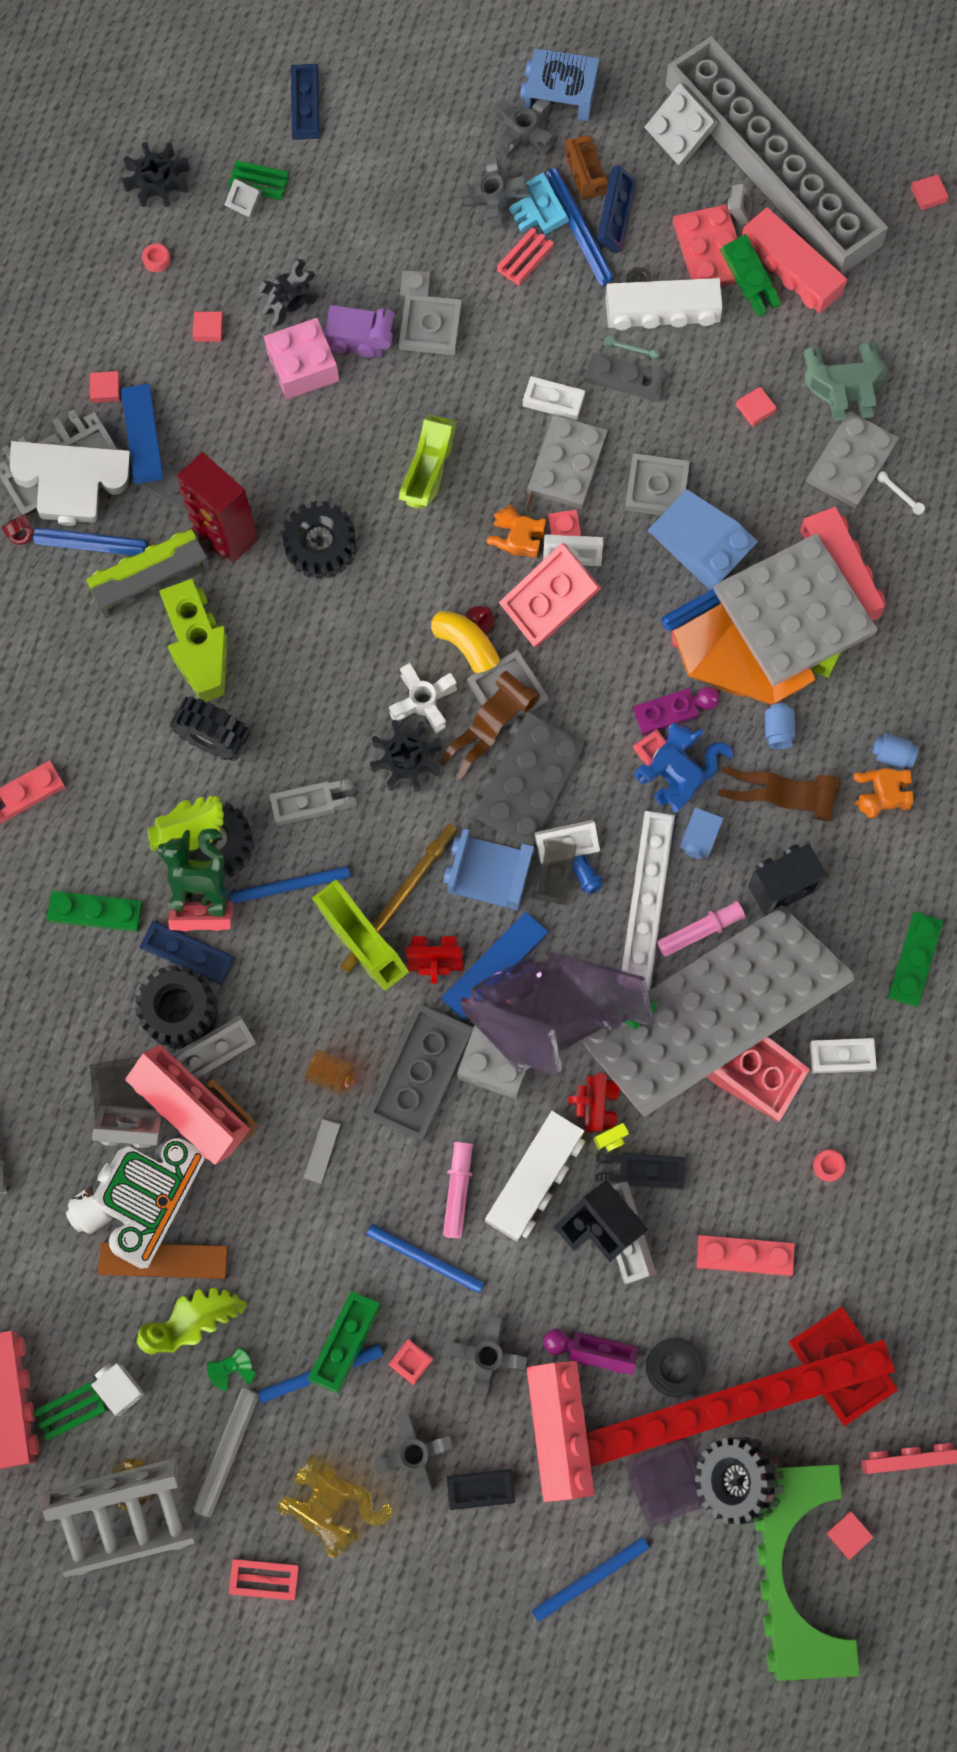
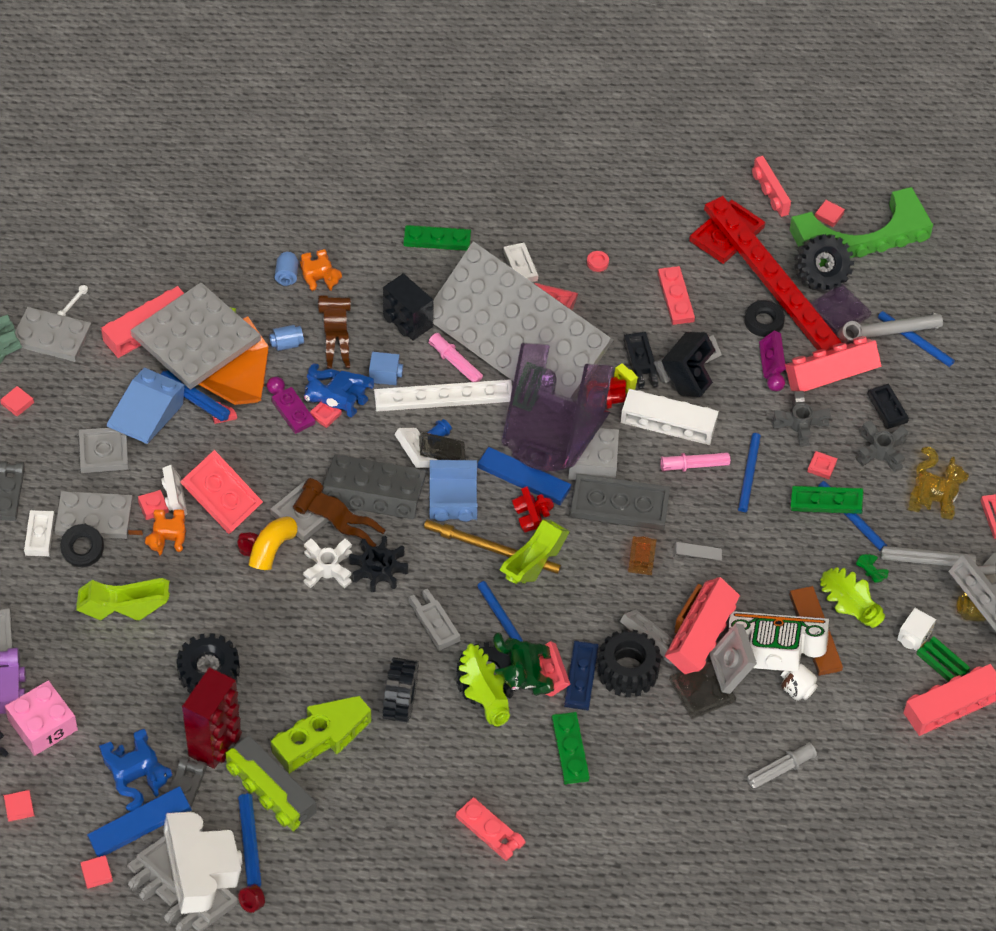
camera: 110 degrees left, 20 degrees down
(214, 434) = (135, 764): none -> blue animal
(514, 425) = (72, 535): none -> black tyre
(608, 1537) = (889, 327): none -> light grey piece

